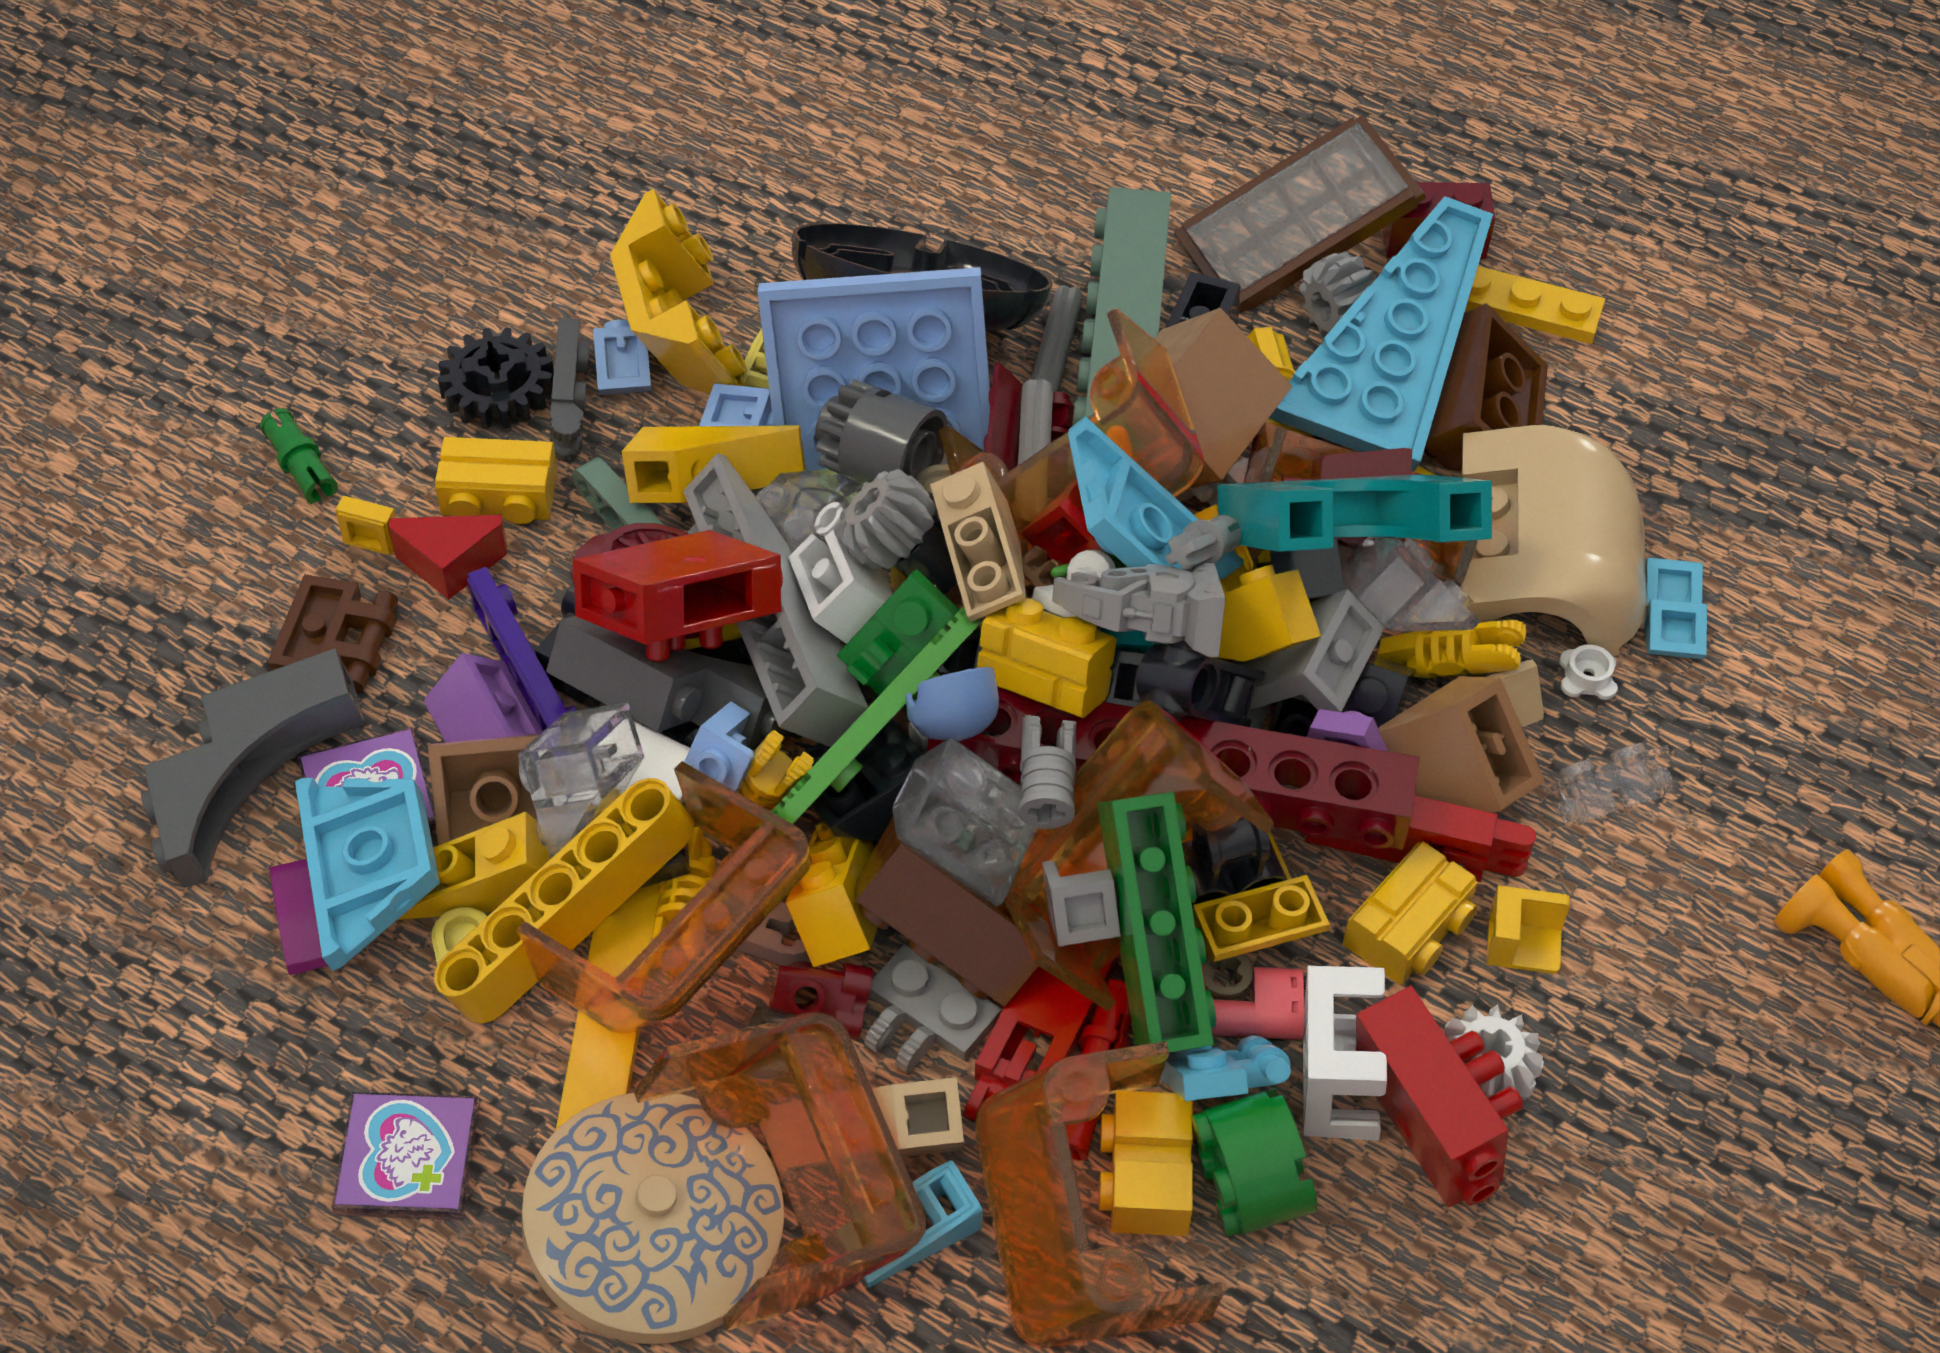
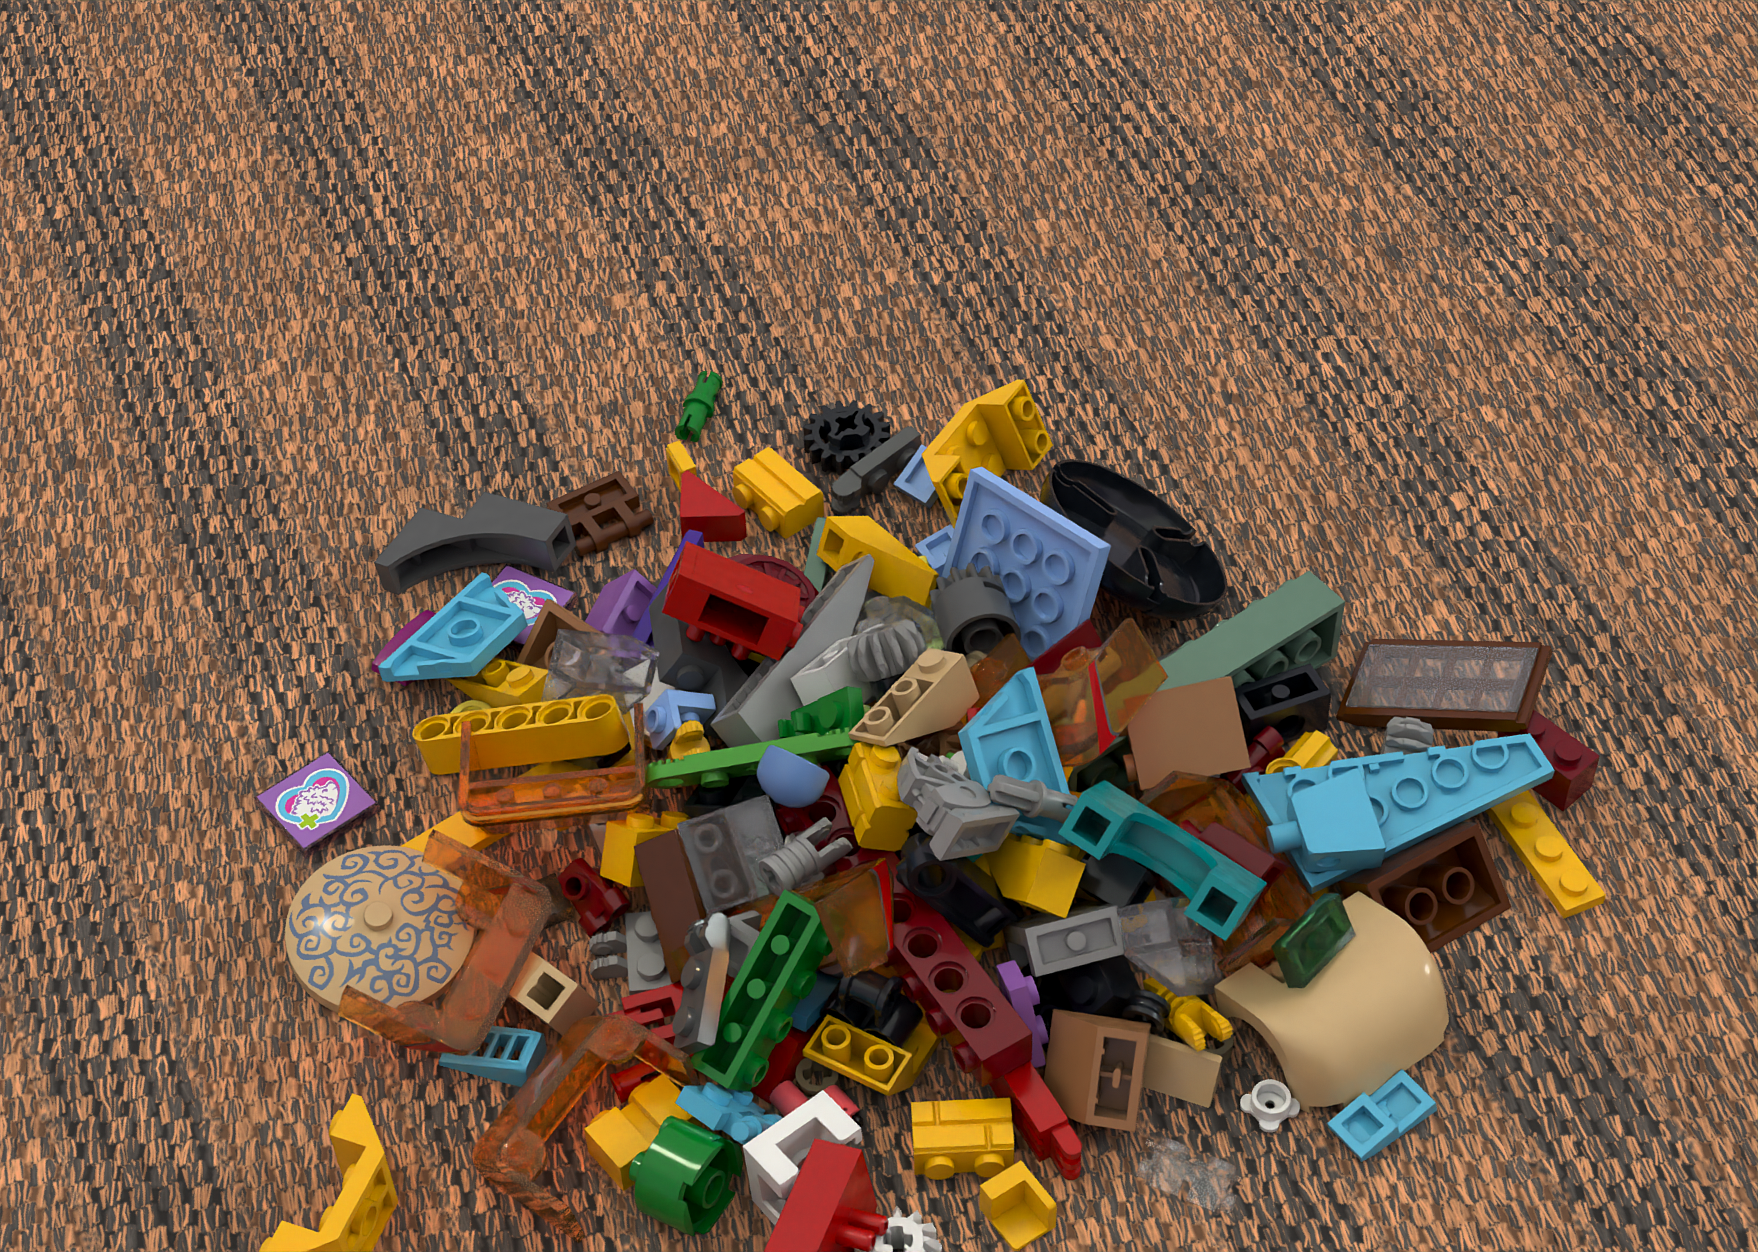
camera: 50 degrees right, 5 degrees down
(1103, 964) = (703, 983): none -> dark grey hinge
(1397, 389) = (1331, 826): none -> medium azure torso
(1440, 667) = (1147, 1008): none -> black bush
(1516, 508) = (1313, 940): none -> clear green plate

